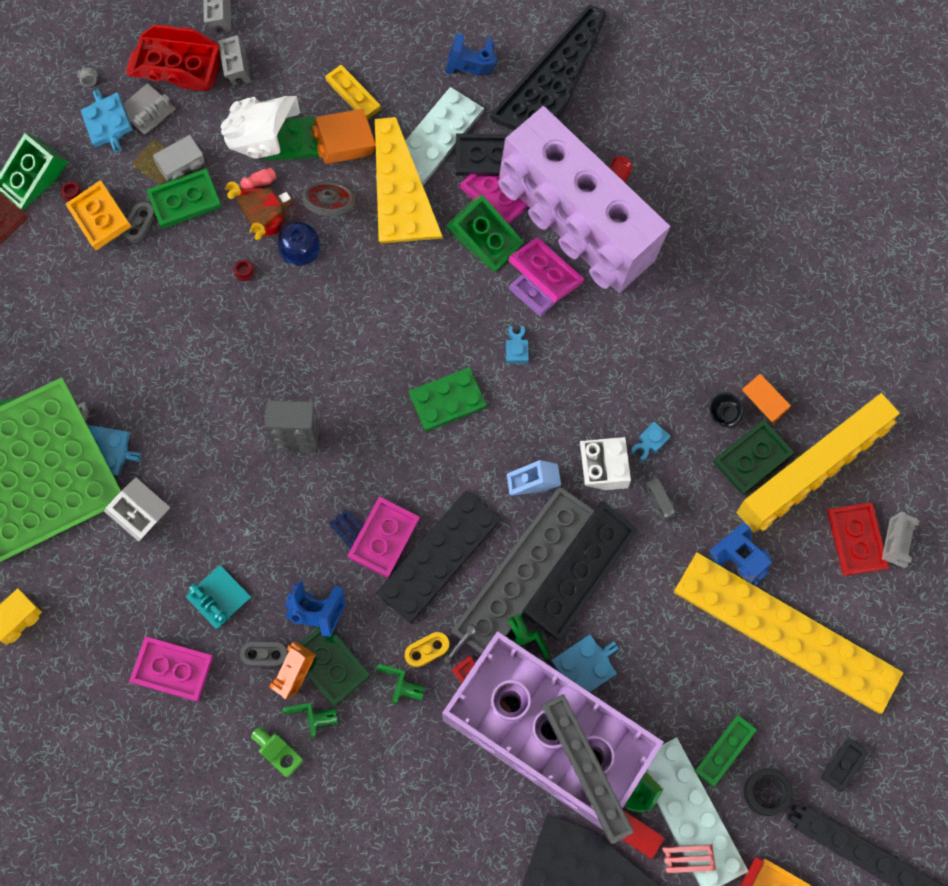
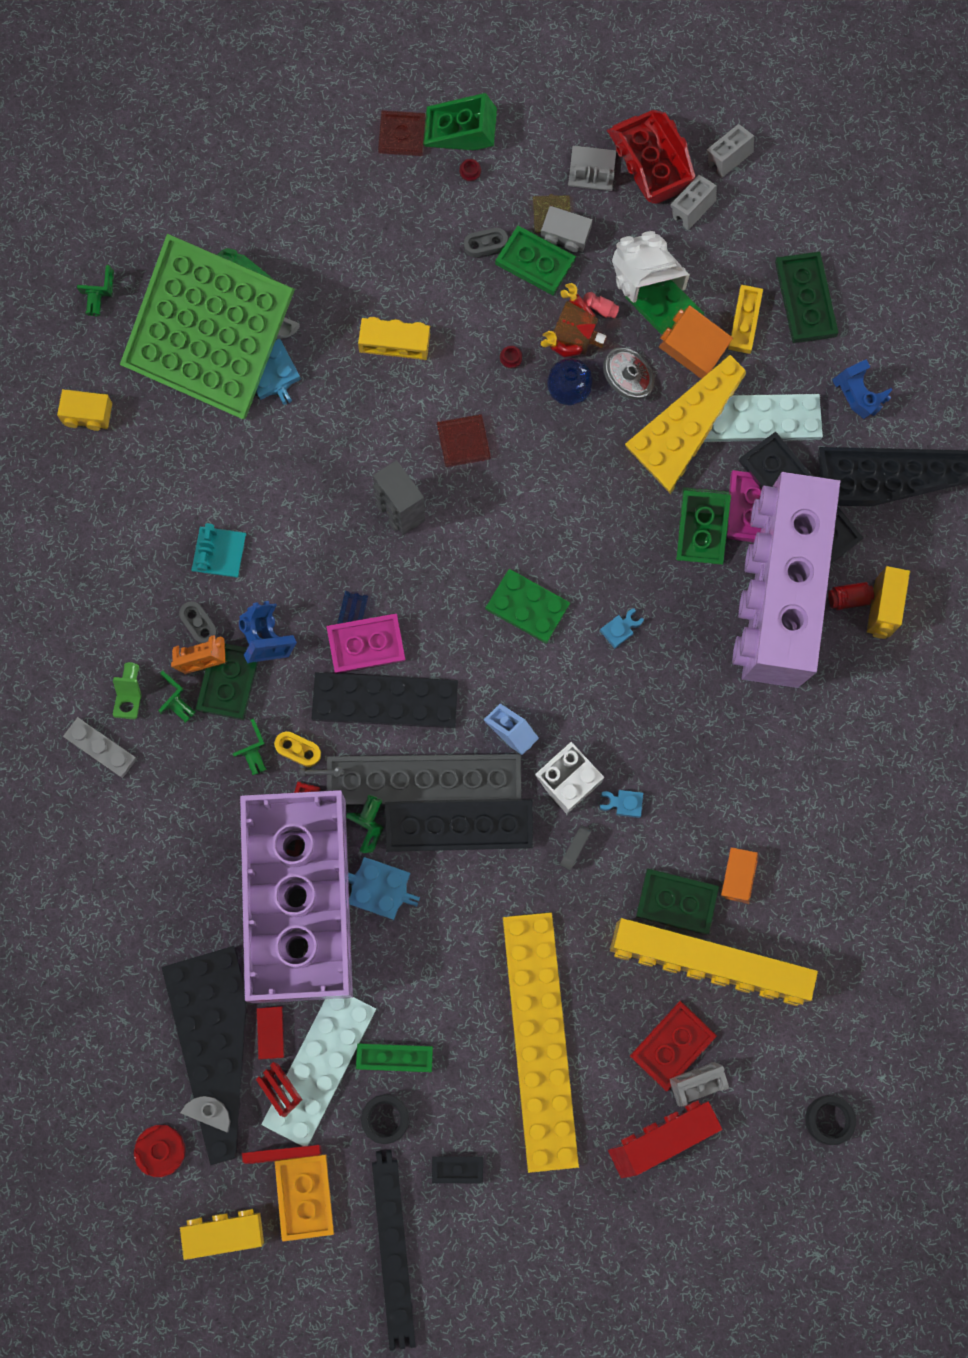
camera: 50 degrees right, 5 degrees up
(87, 77) = (582, 100): light grey plate -> none
(98, 215) = (464, 206): light orange plate -> none
(106, 120) = (555, 145): dark azure plate -> none
(136, 509) = (240, 433): white slope -> none
(158, 341) = (394, 338): none -> yellow brick
(171, 669) = (133, 561): dark pink plate -> none
(280, 351) = (463, 440): none -> clear red tile
(303, 807) = (100, 747): none -> light grey plate
(371, 42) = (806, 297): none -> dark green plate
(531, 295) = (678, 606): medium lavender plate -> none
(546, 269) = (709, 600): dark pink plate -> none
(587, 769) = (278, 947): dark grey tile -> none
(644, 152) = (888, 602): none -> yellow brick
(644, 795) = (304, 1015): green plate -> none
(726, 409) = (701, 847): black hair -> none
(754, 566) = (575, 970): blue tile -> none
(926, 595) = (664, 1140): none -> red wedge

